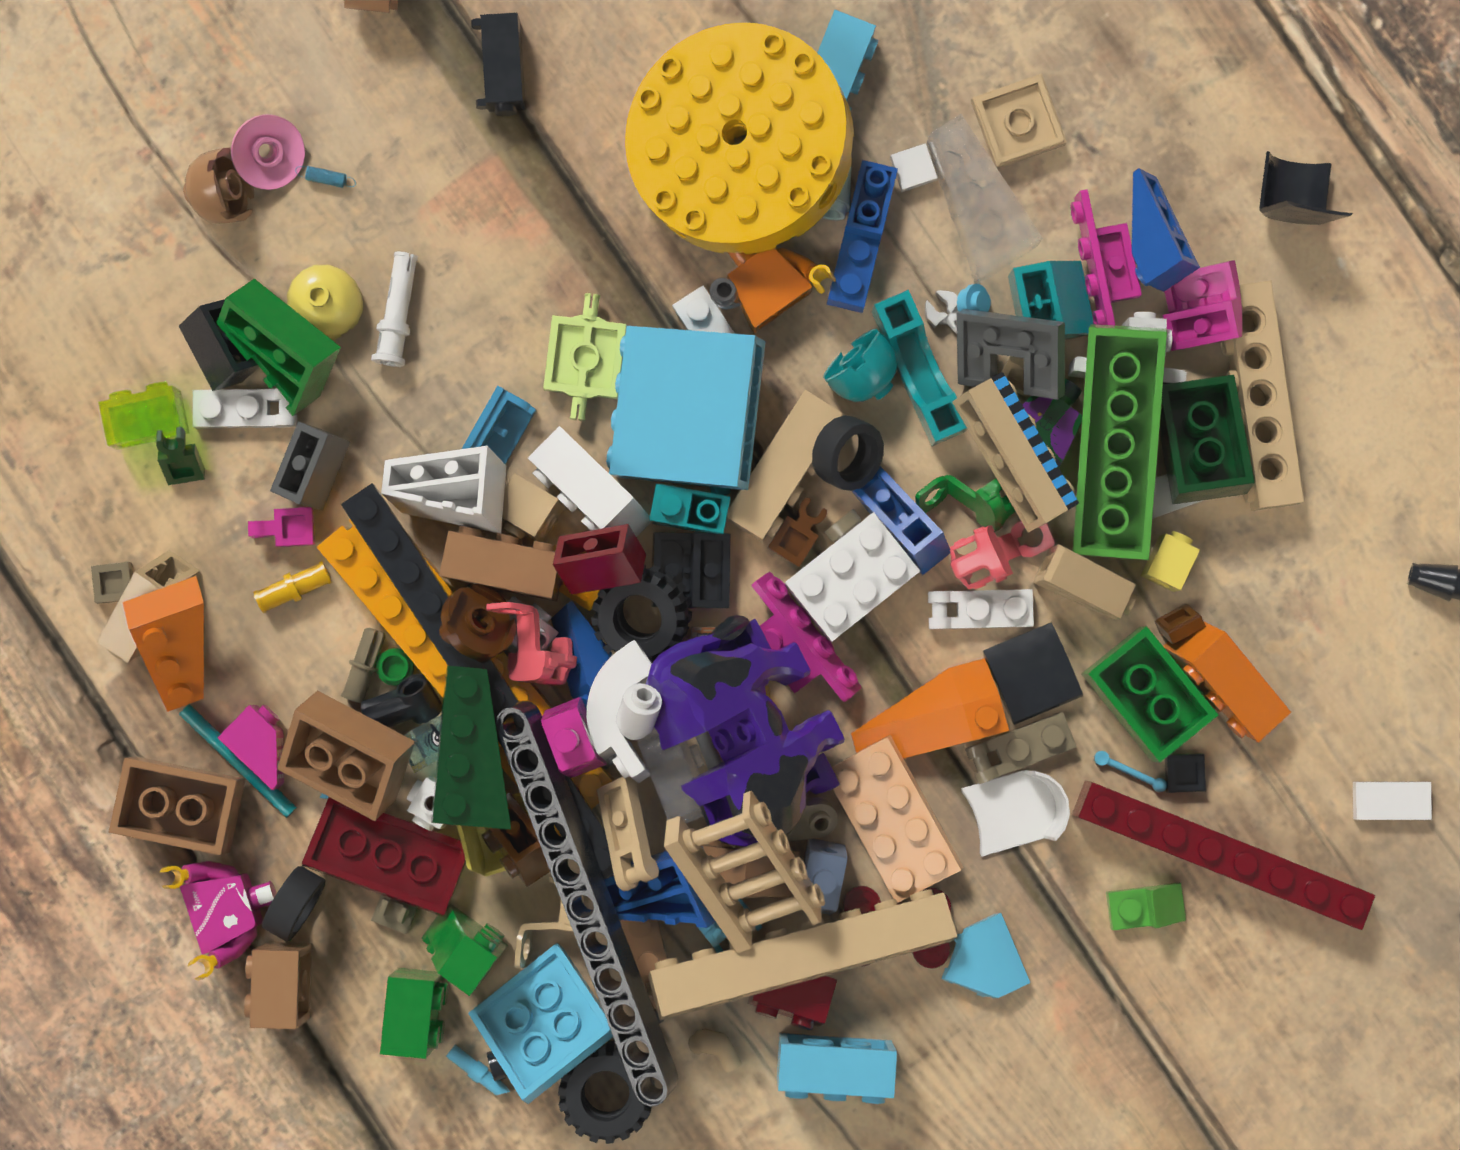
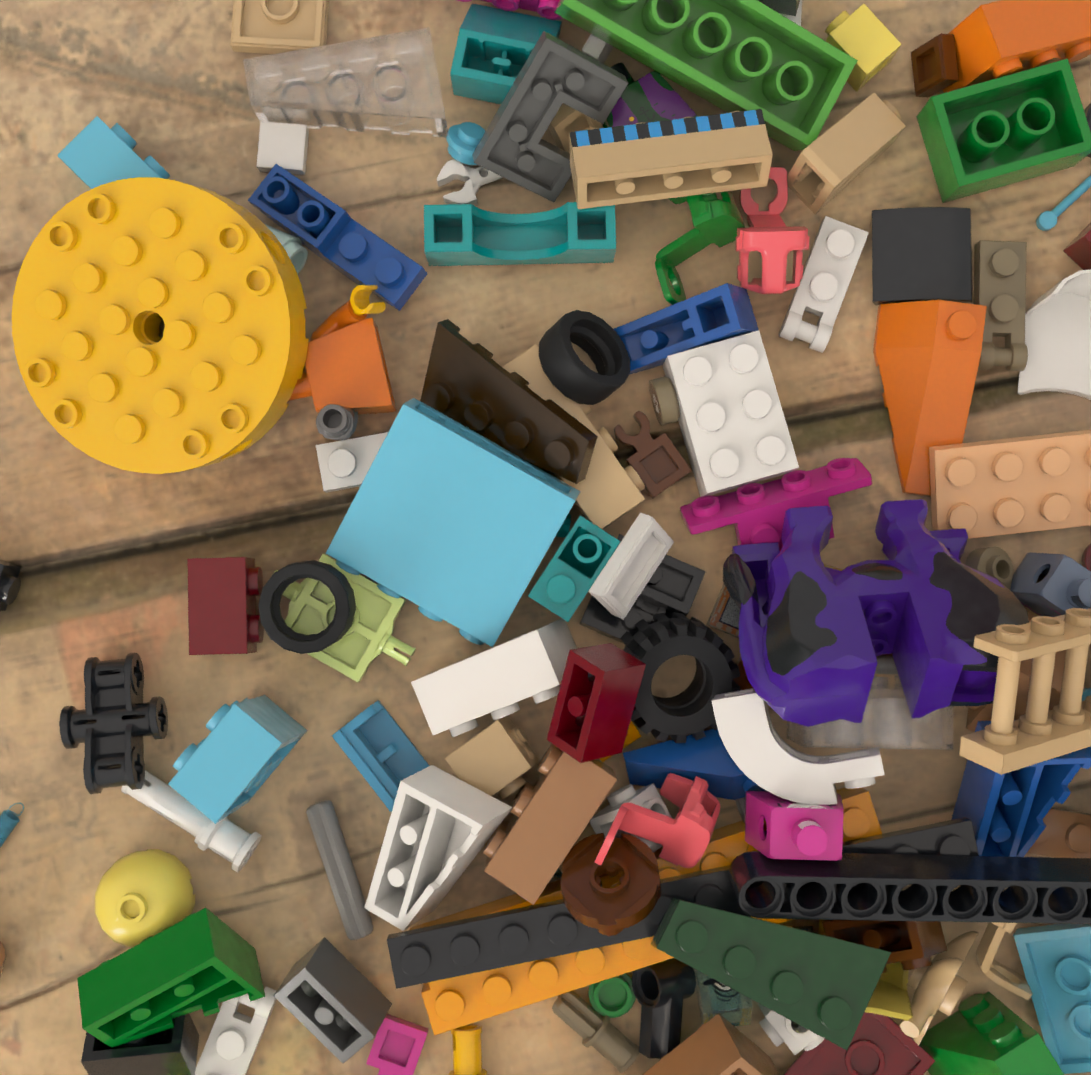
camera: 70 degrees left, 0 degrees up
(402, 433) = (339, 870): none -> light grey axle
(441, 226) = (113, 723): none -> black axle
(457, 324) = (236, 757): none -> medium azure brick
(495, 893) = (937, 986): none -> tan animal
(558, 269) = (223, 605): none -> dark red brick
(568, 304) = (271, 614): none -> black tyre
(626, 833) = (941, 807): tan plate -> none
(638, 711) = (808, 732): white brick -> none
(709, 549) = (631, 566): none -> white tile
(784, 406) = (502, 408): none -> dark brown wing
(864, 370) = (494, 298): teal cylinder -> none

